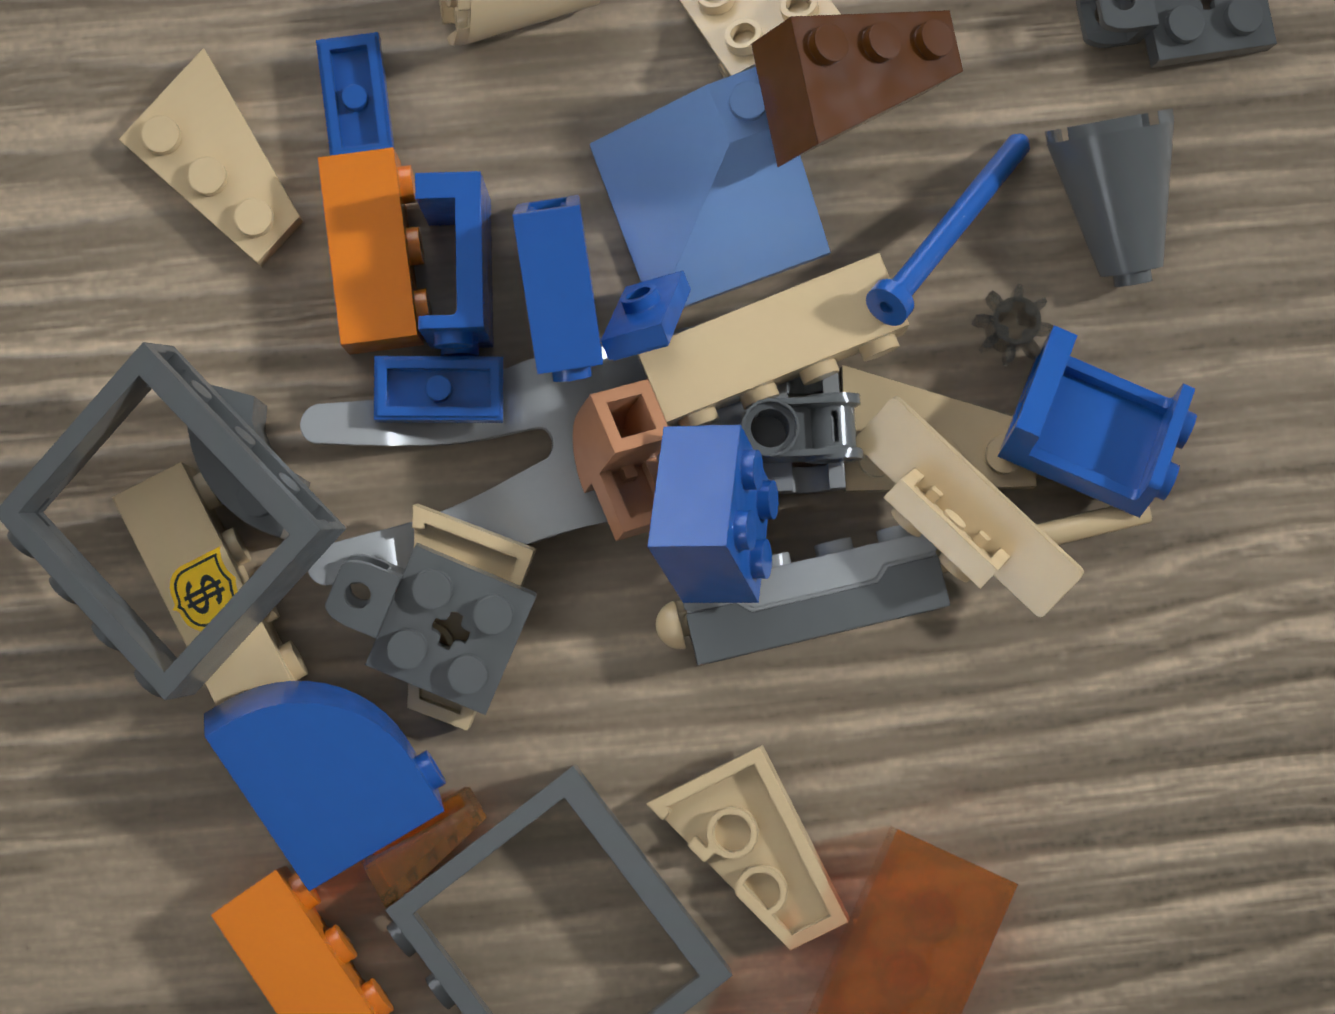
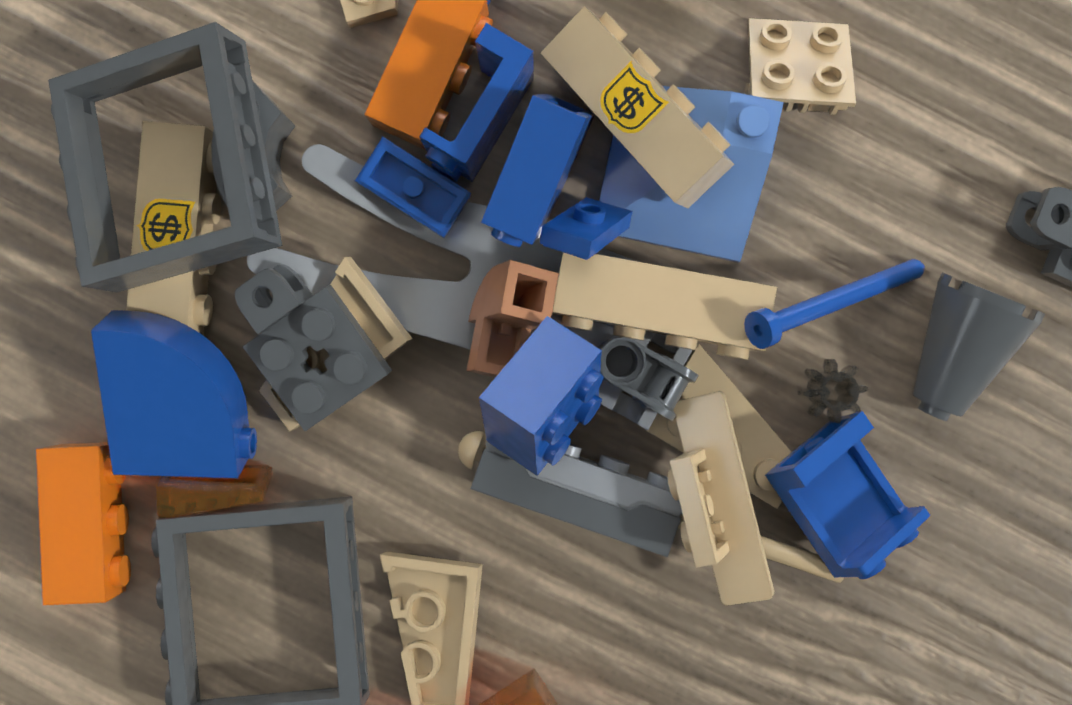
camera: 25 degrees right, 5 degrees up
(621, 161) = (637, 107): none -> tan brick
(846, 70) = (836, 142): reddish brown wedge -> none

